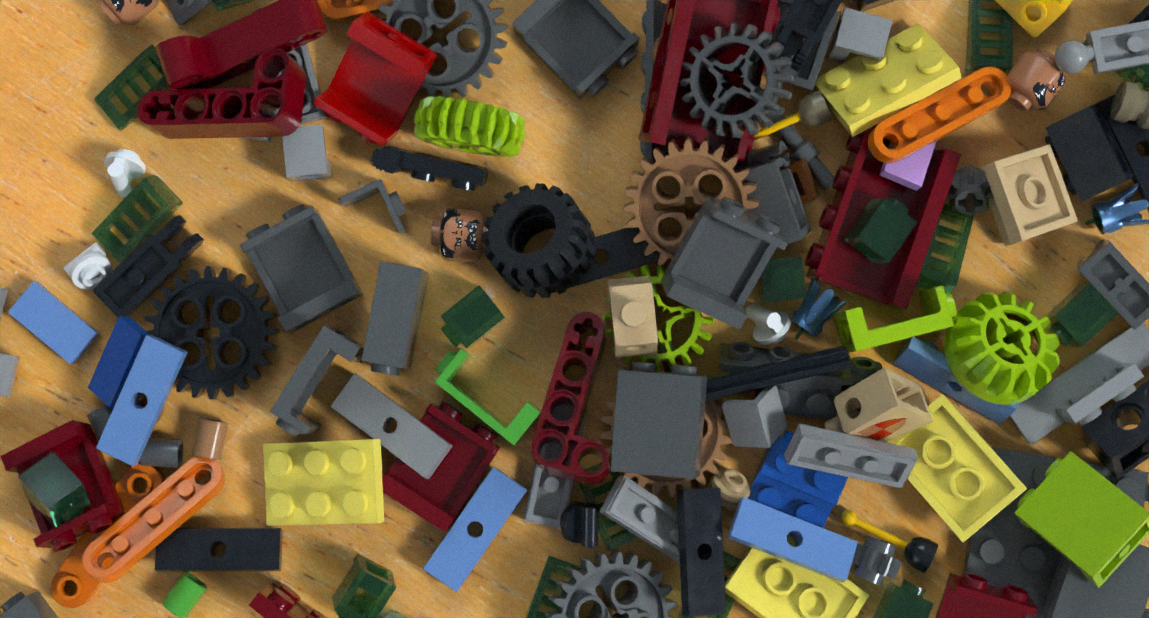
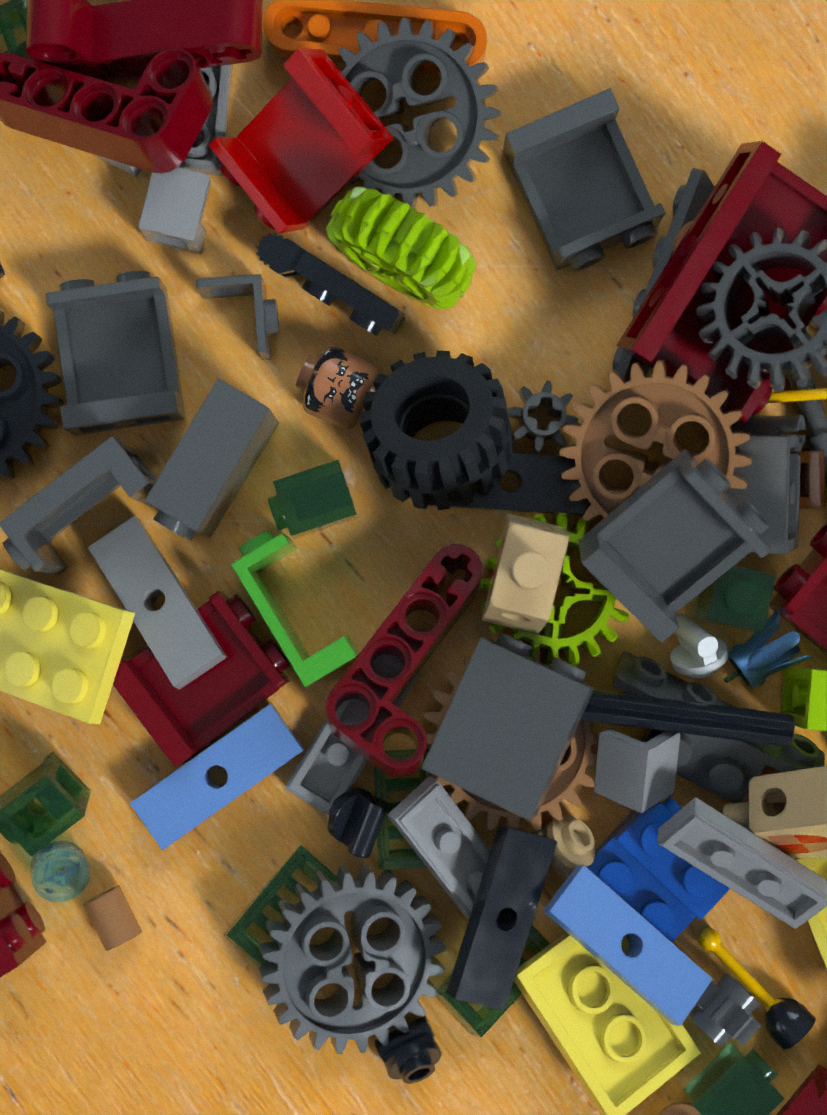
camera: 20 degrees right, 0 degrees up
(599, 214) = (556, 409): none -> dark grey gear

